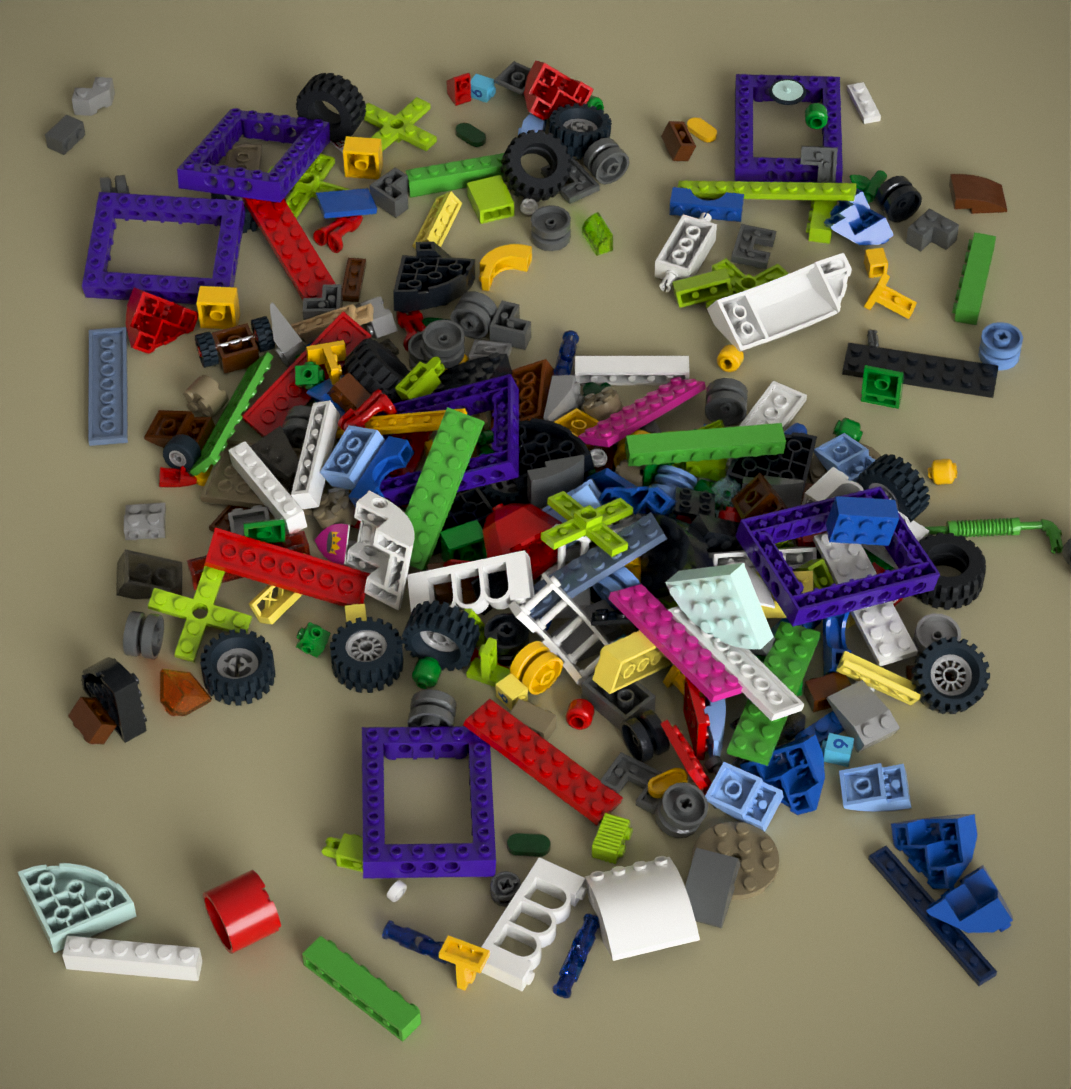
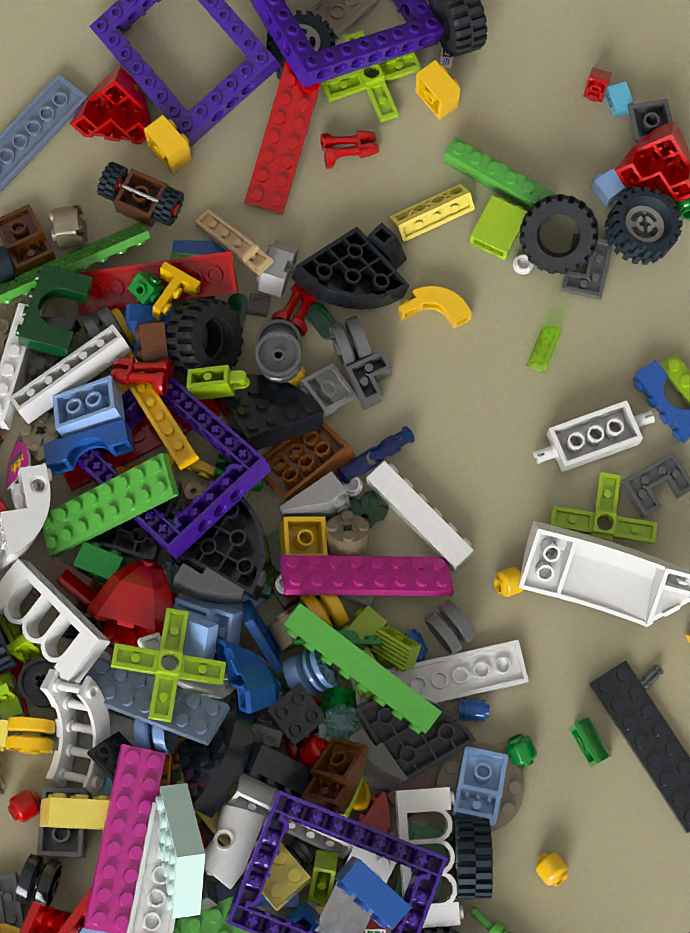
camera: 45 degrees right, 25 degrees up
(263, 443) = (51, 284): none -> dark green arch
(285, 337) = (182, 225): light grey slope -> none
(330, 301) = (253, 223): dark grey brick -> none
(346, 203) = (374, 126): blue tile -> none
(353, 279) = (308, 208): reddish brown tile -> none
(391, 192) = (424, 143): dark grey brick -> none
(401, 126) = (503, 67): lime piece -> none
(470, 134) = (559, 140): dark green tile -> none
(550, 228) = (510, 306): dark grey wheel -> none
(606, 160) = (629, 279): dark grey wheel -> none
(702, 287) = (563, 489): lime brick -> none

